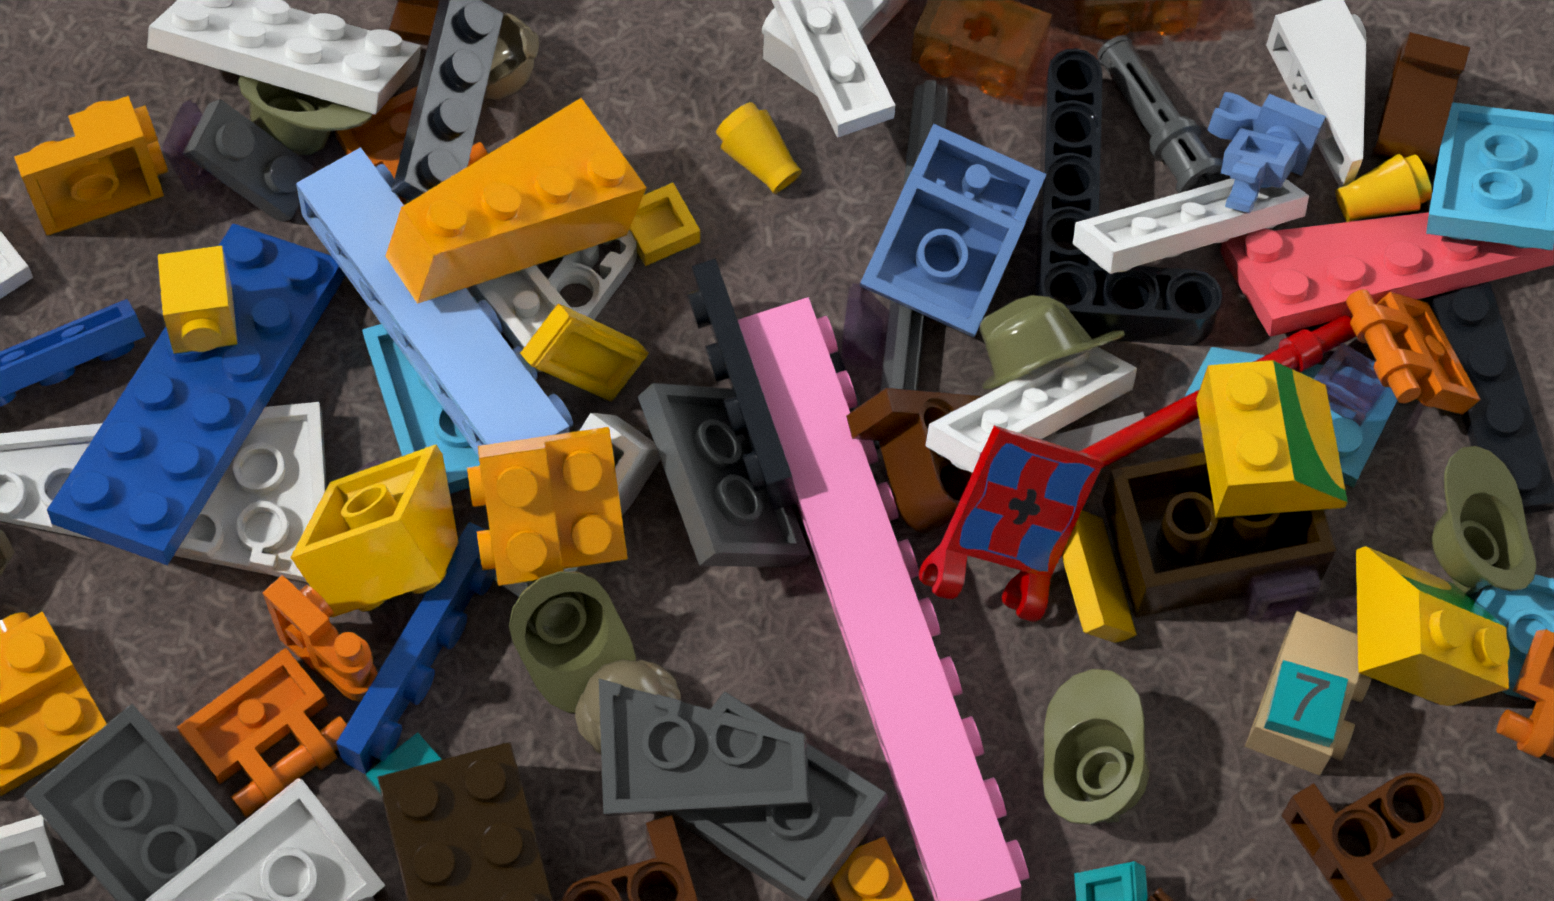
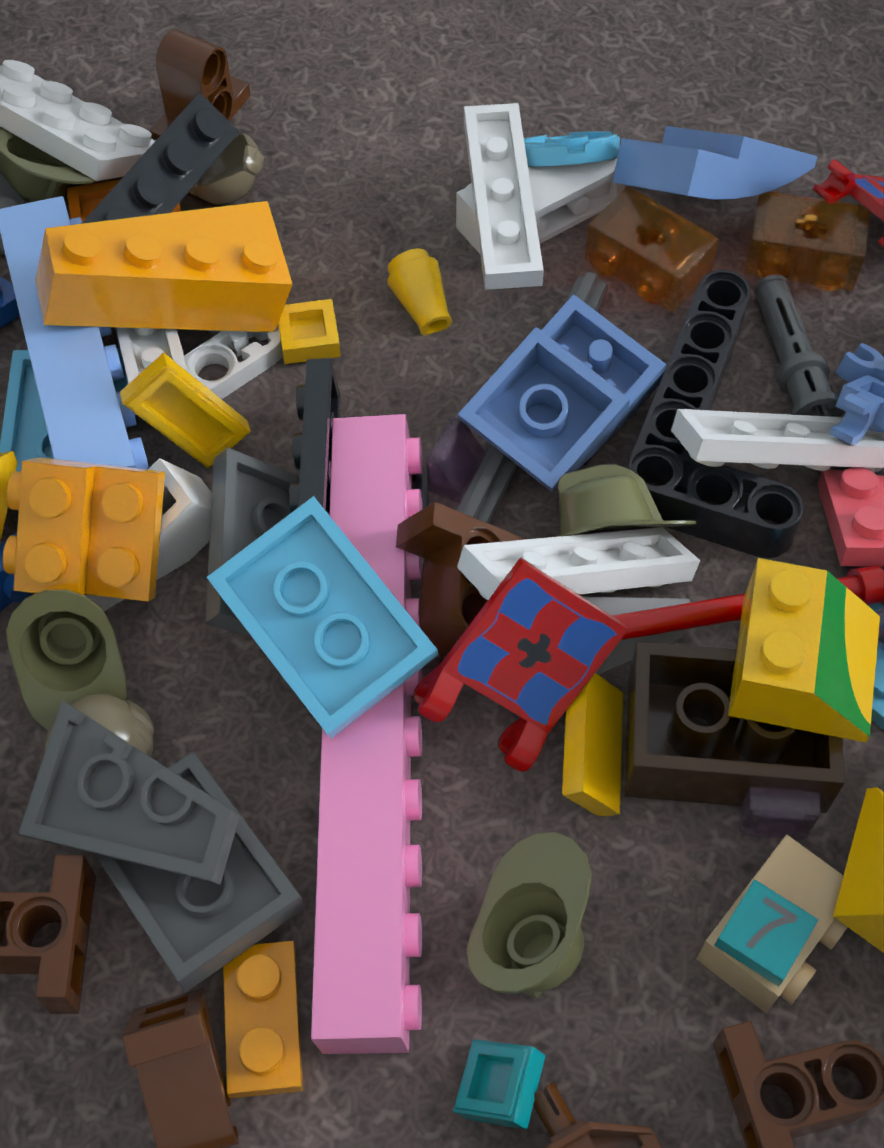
camera: 20 degrees right, 5 degrees down
(817, 529) = (323, 616): none -> medium azure plate

